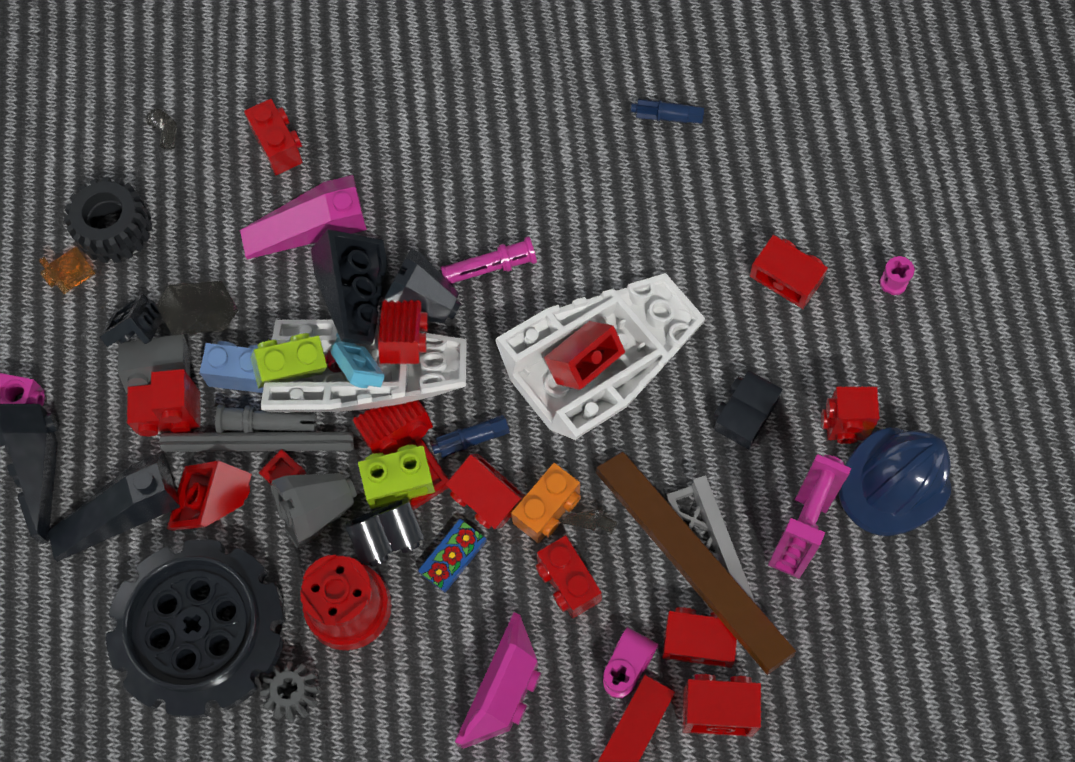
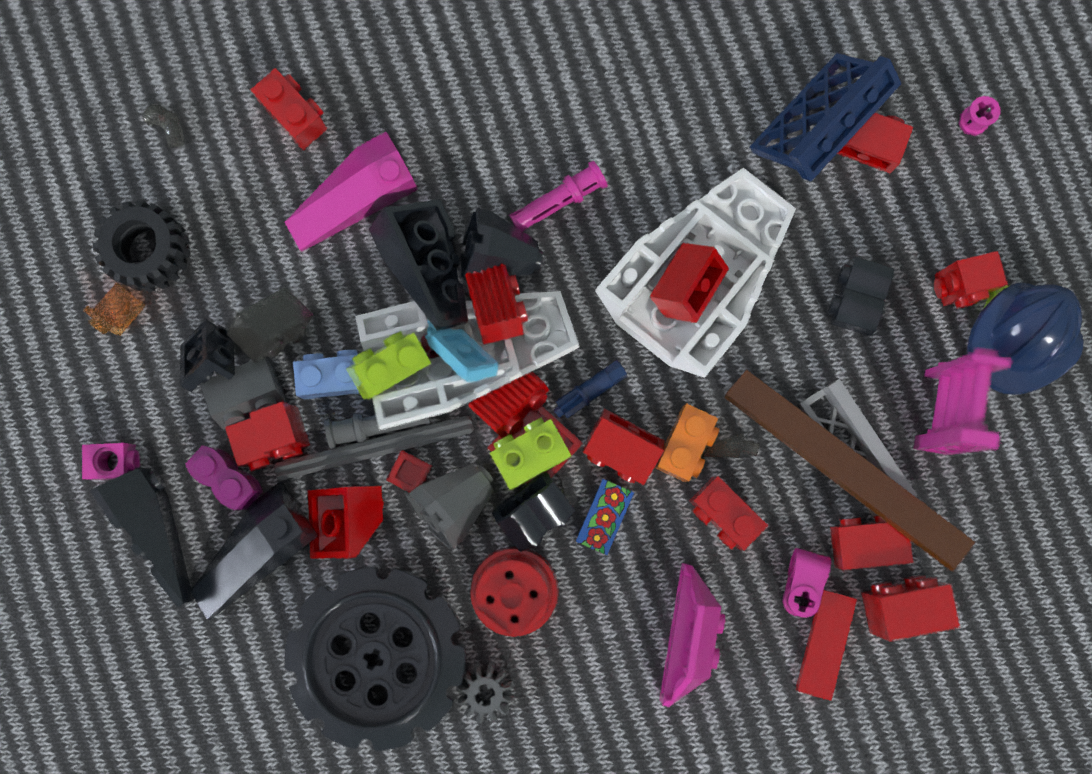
camera: 15 degrees left, 15 degrees up
(112, 433) = (220, 472): none -> magenta brick
(752, 241) = (834, 124): none -> dark blue fence

